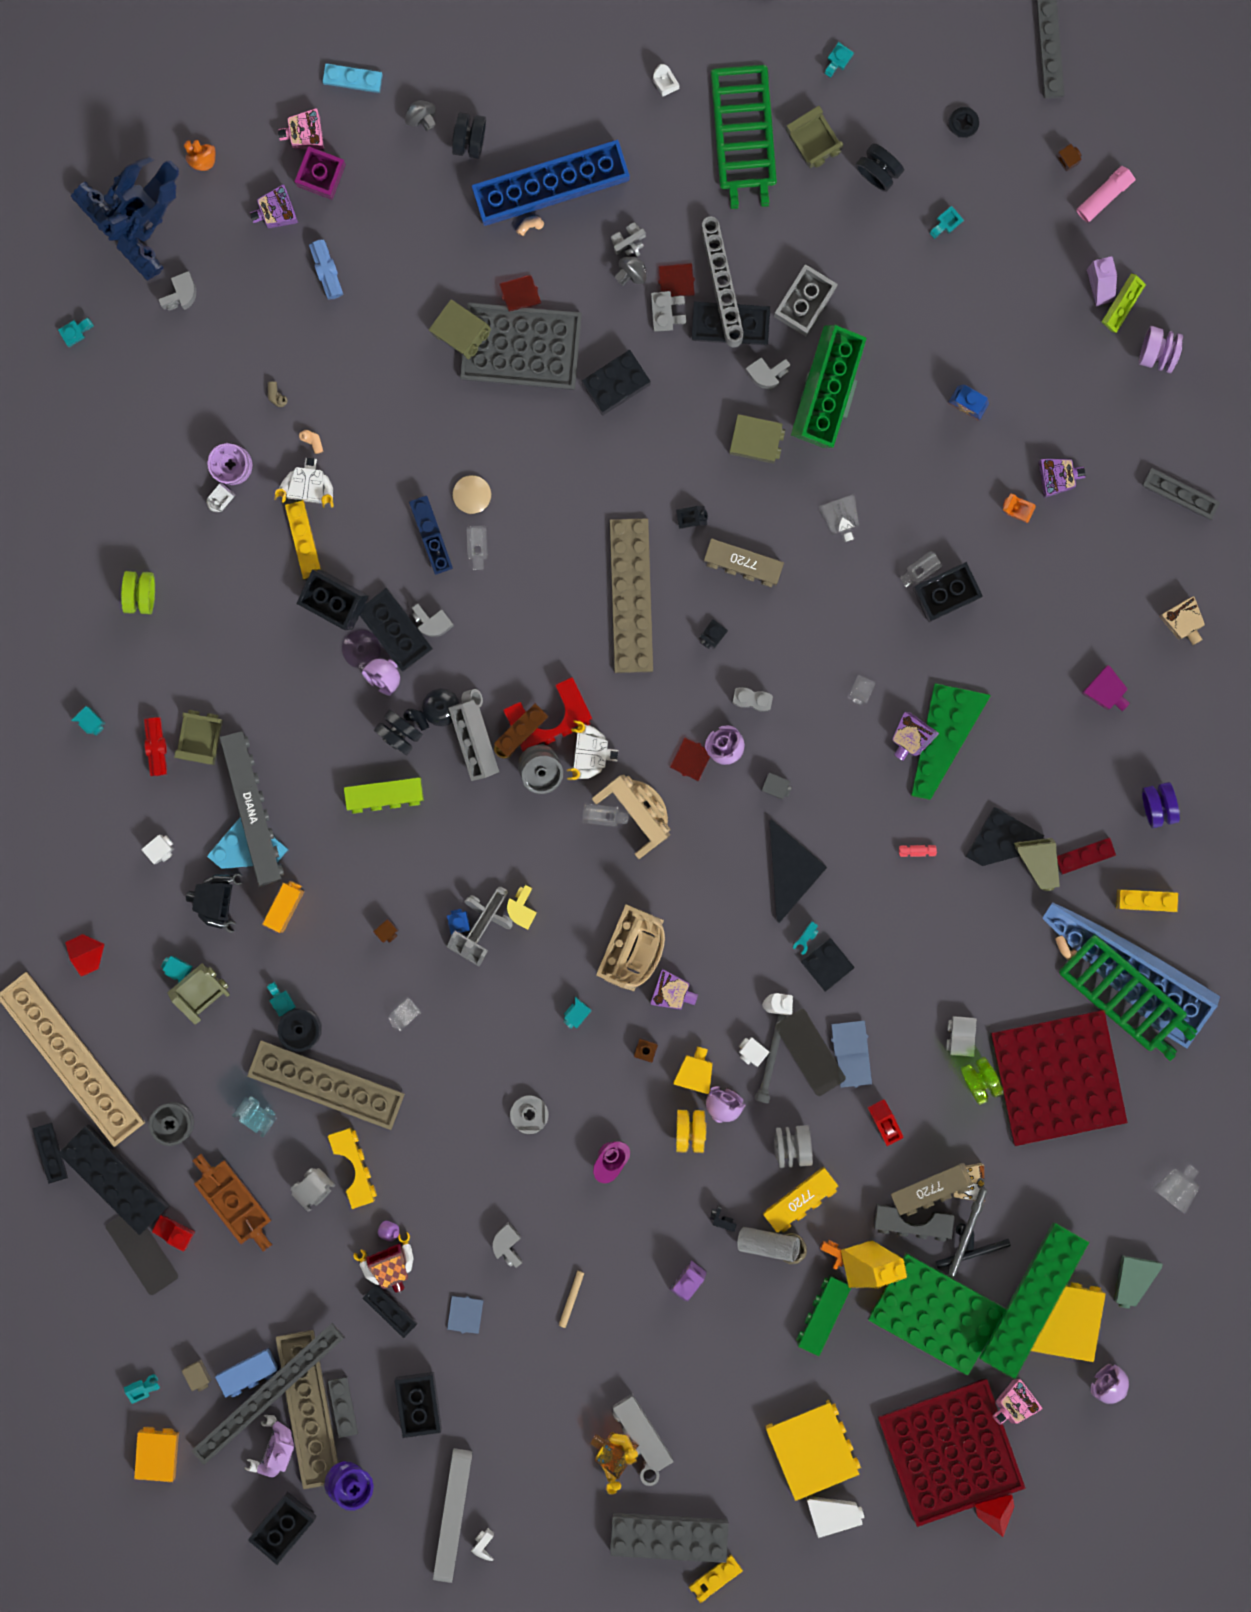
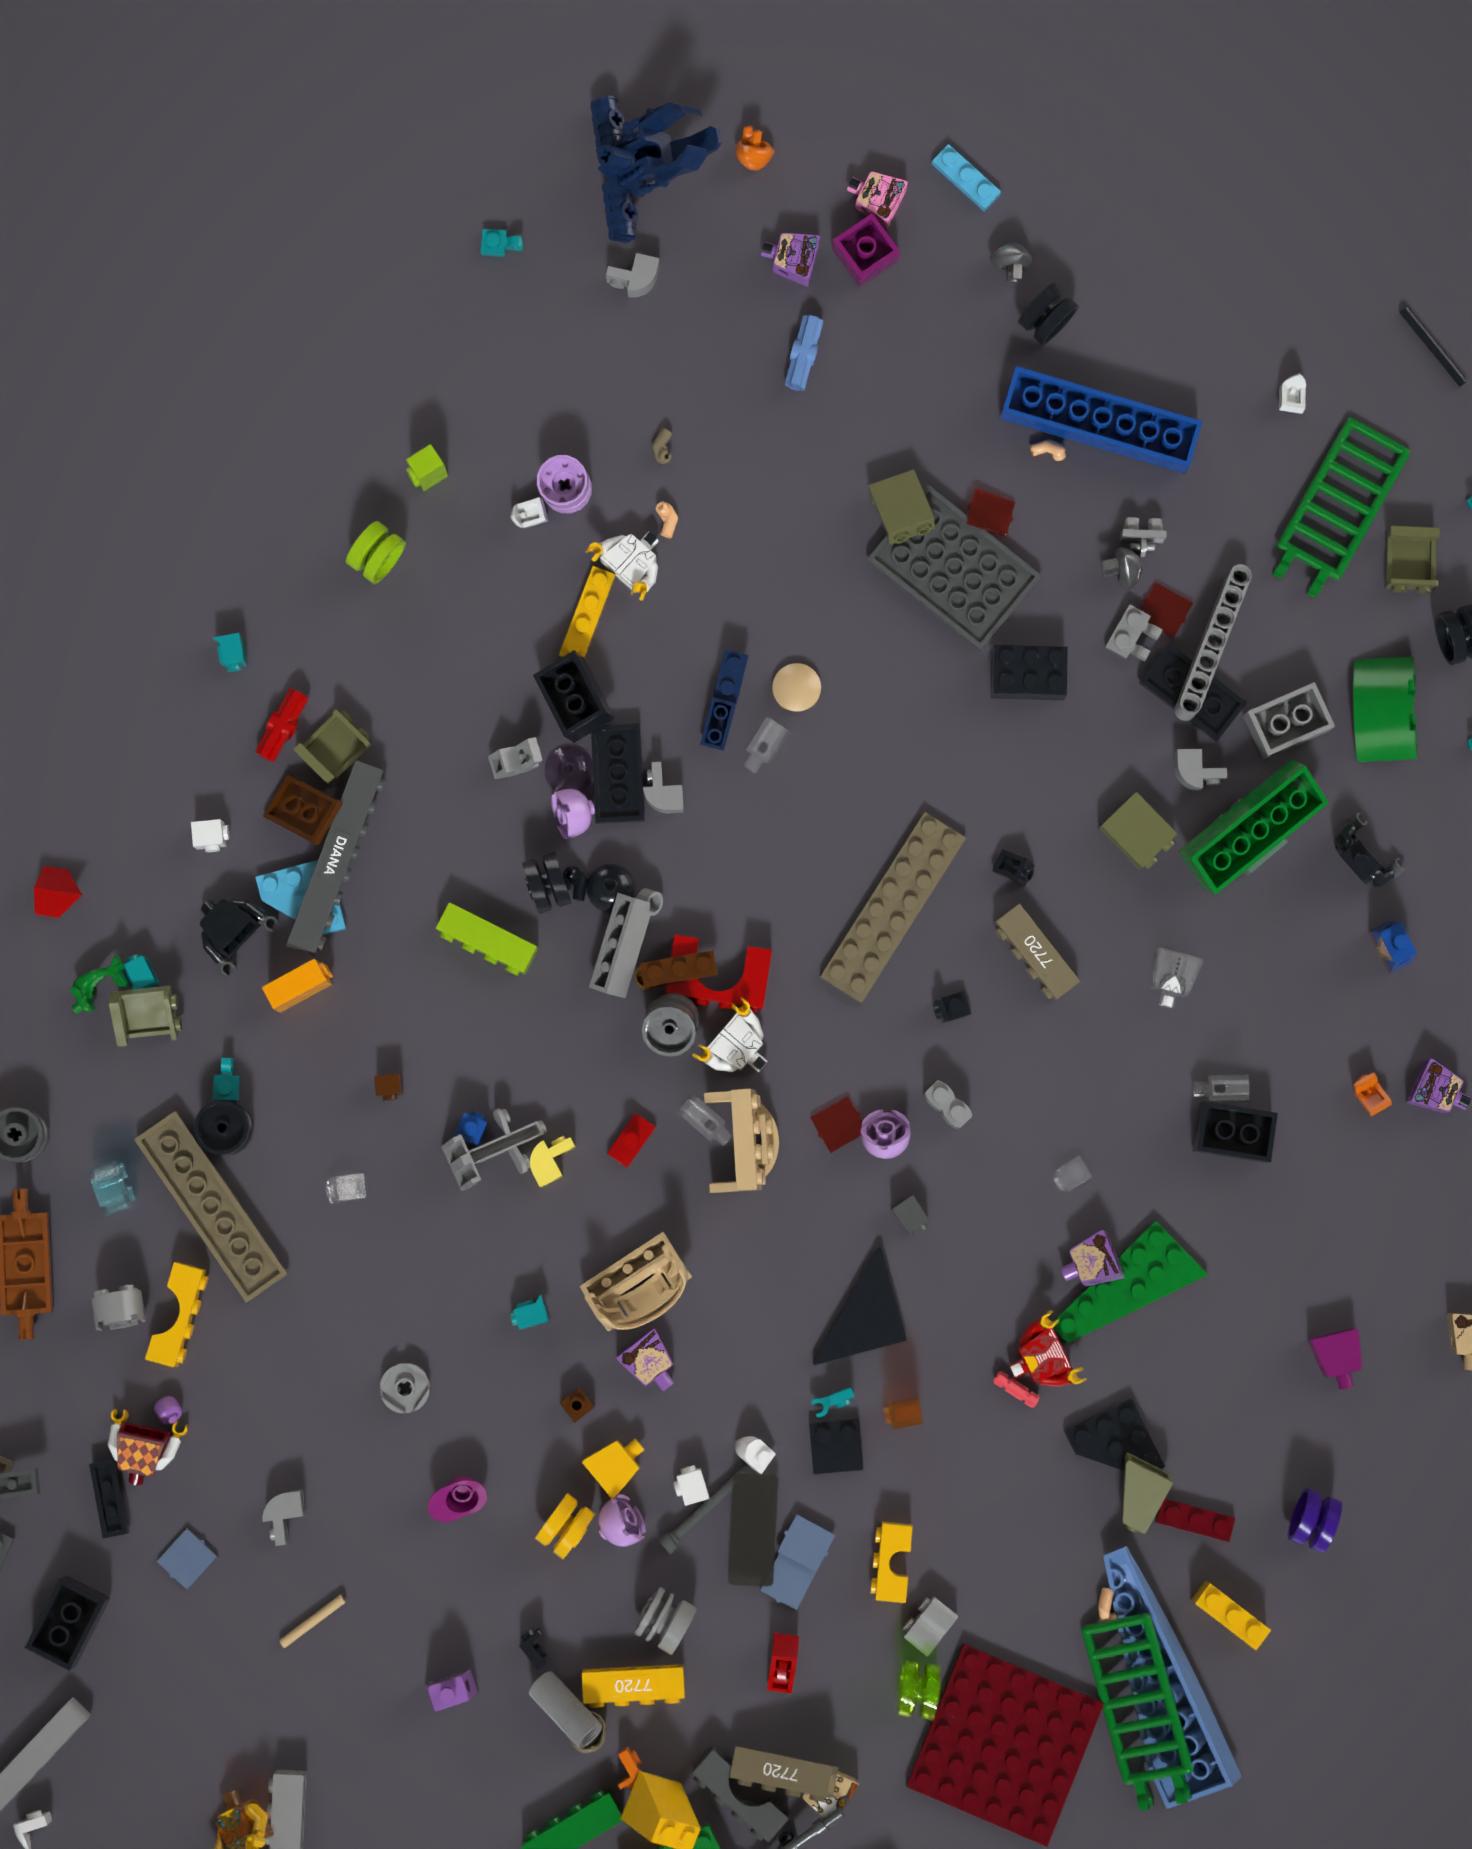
camera: 35 degrees right, 5 degrees down
(132, 515) = (426, 468): none -> lime brick
(146, 999) = (84, 984): none -> green animal
(207, 792) = (302, 809): none -> reddish brown tile
(322, 666) = (516, 759): none -> light grey brick
(565, 859) = (631, 1140): none -> red tile
(856, 914) = (903, 1413): none -> clear orange brick
(862, 250) = (1384, 709): none -> green panel
(902, 998) = (891, 1539): none -> yellow arch
(911, 359) = (1361, 859): none -> black torso
(921, 818) = (1044, 1356): none -> red torso

